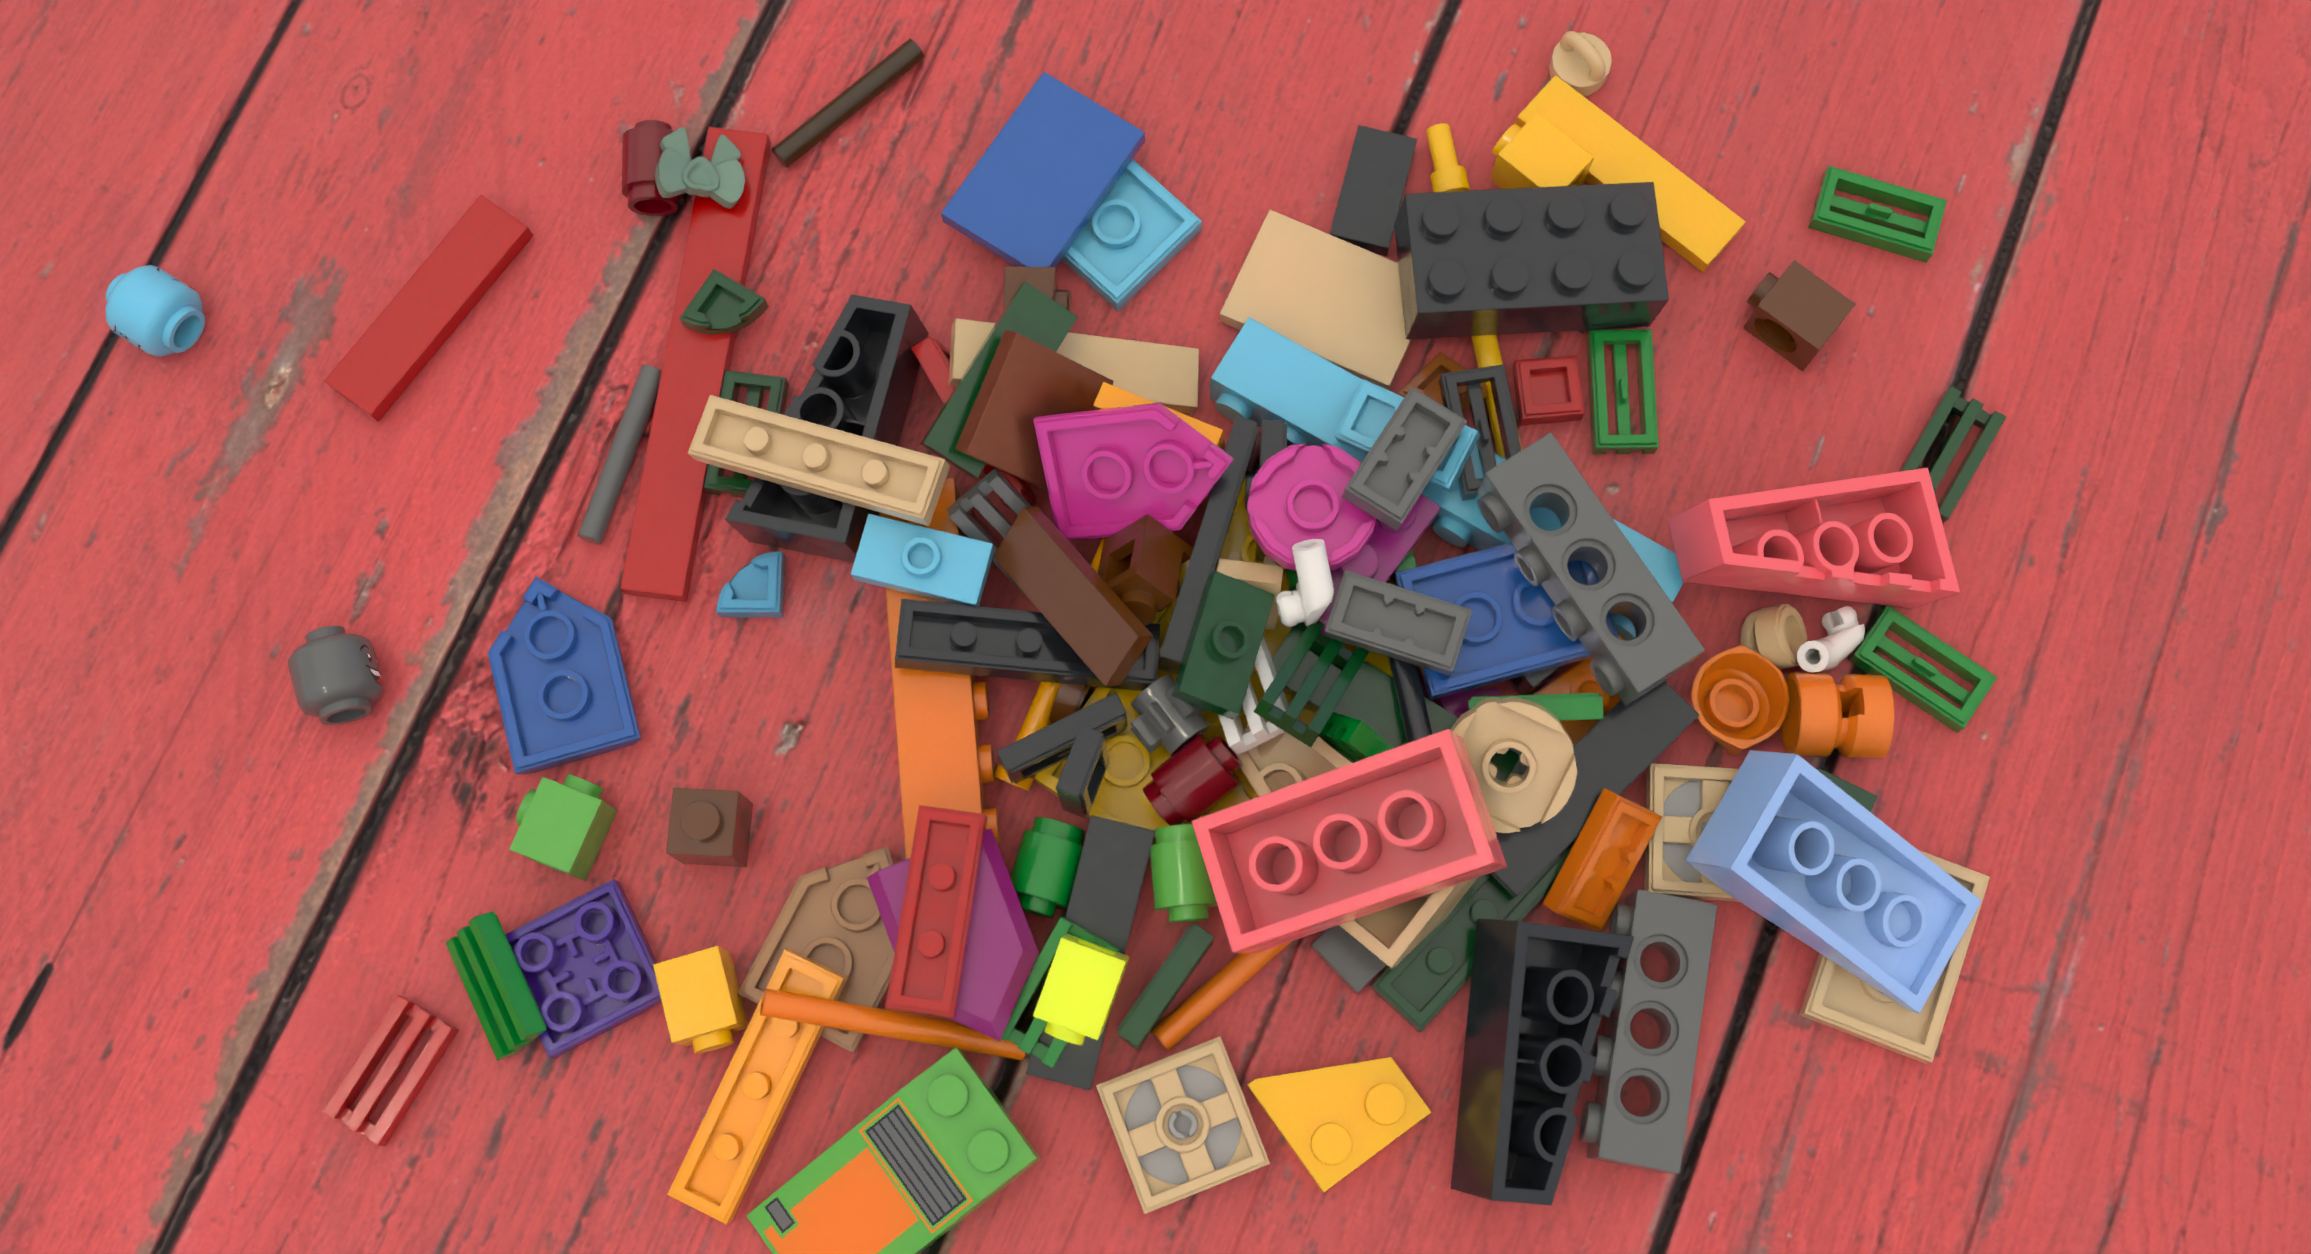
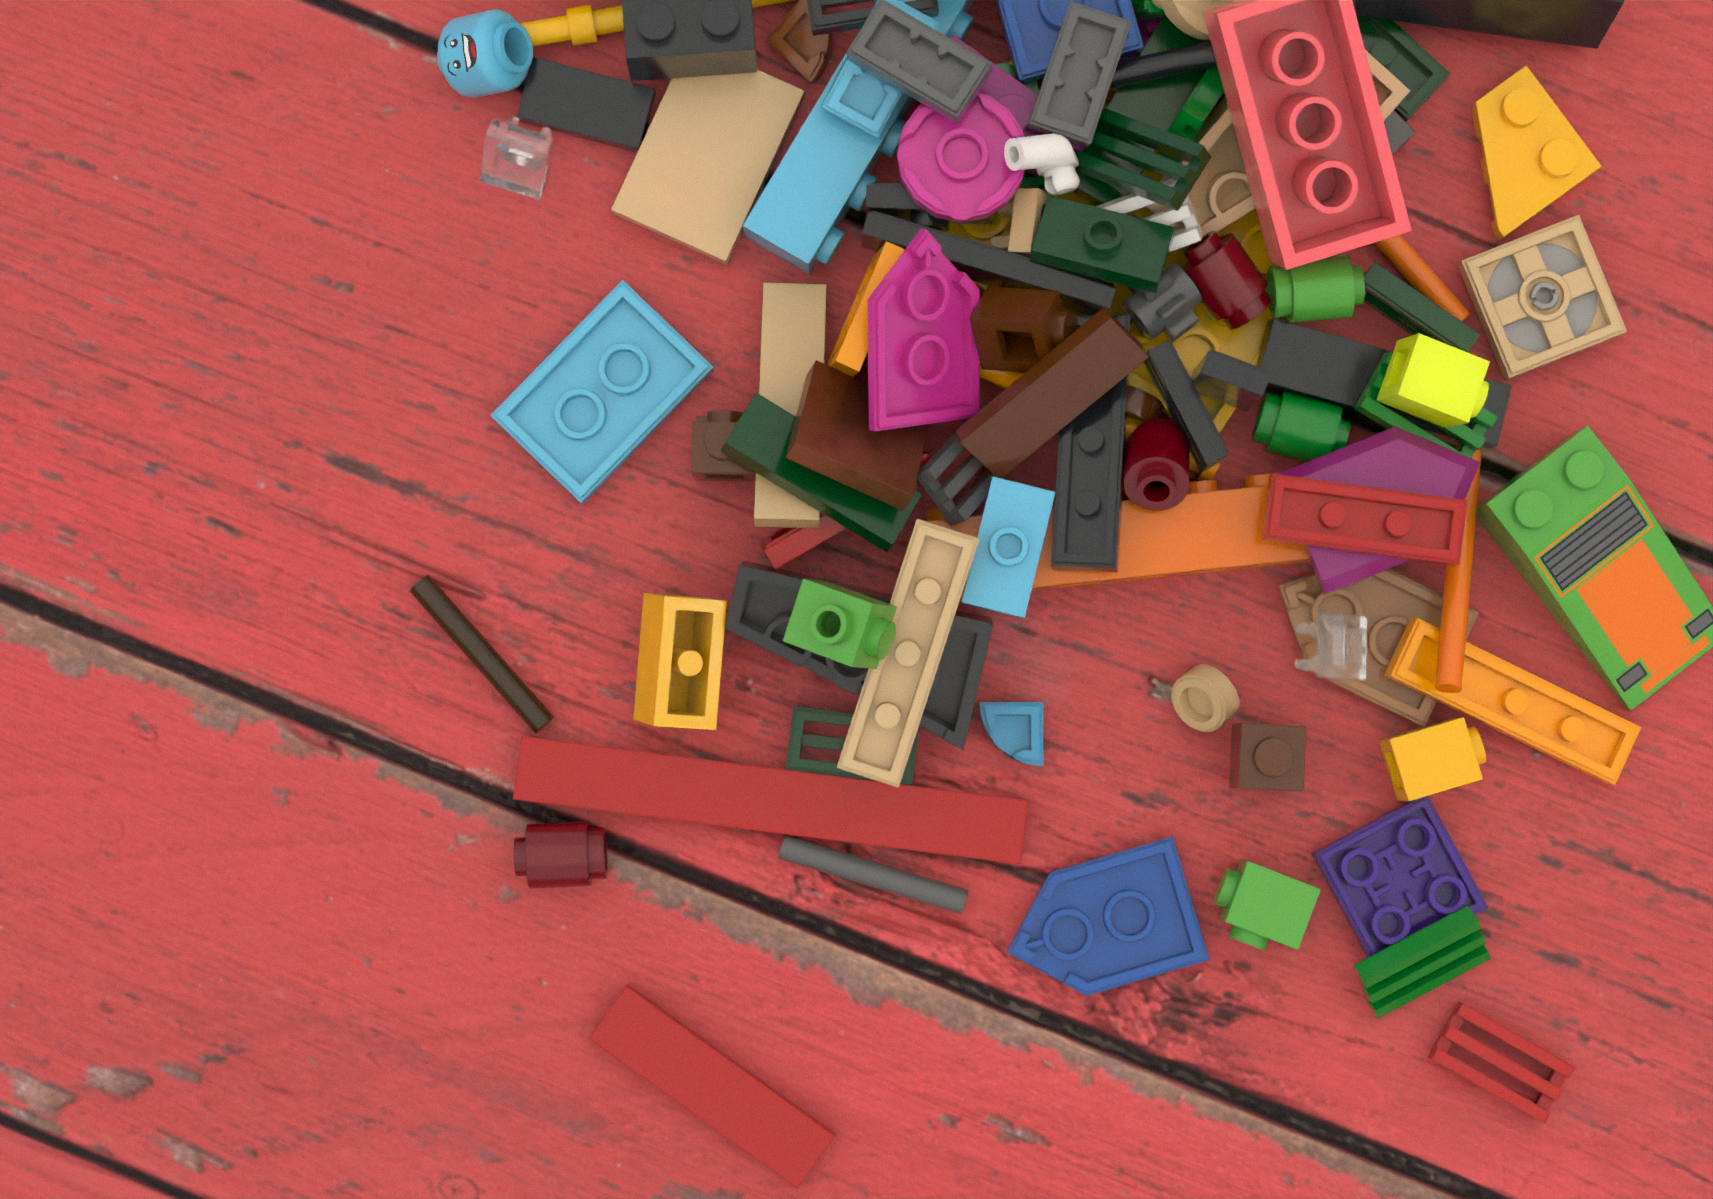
camera: 90 degrees left, 10 degrees up
(335, 675) = (1113, 1147): dark grey head -> none
(718, 178) = (578, 783): sand green piece -> none
(722, 306) = (720, 771): dark green tile -> none
(777, 772) = (1204, 698): none -> tan tile
(815, 896) = (1340, 646): none -> clear tile
(827, 264) = (679, 661): none -> yellow brick
(841, 384) = (841, 624): none -> bright green brick
(1001, 706) = (1157, 465): none -> dark red brick
(1043, 176) = (578, 440): blue tile -> none
(1317, 122) = (516, 158): none -> clear tile
(1417, 90) = (484, 53): none -> medium azure head

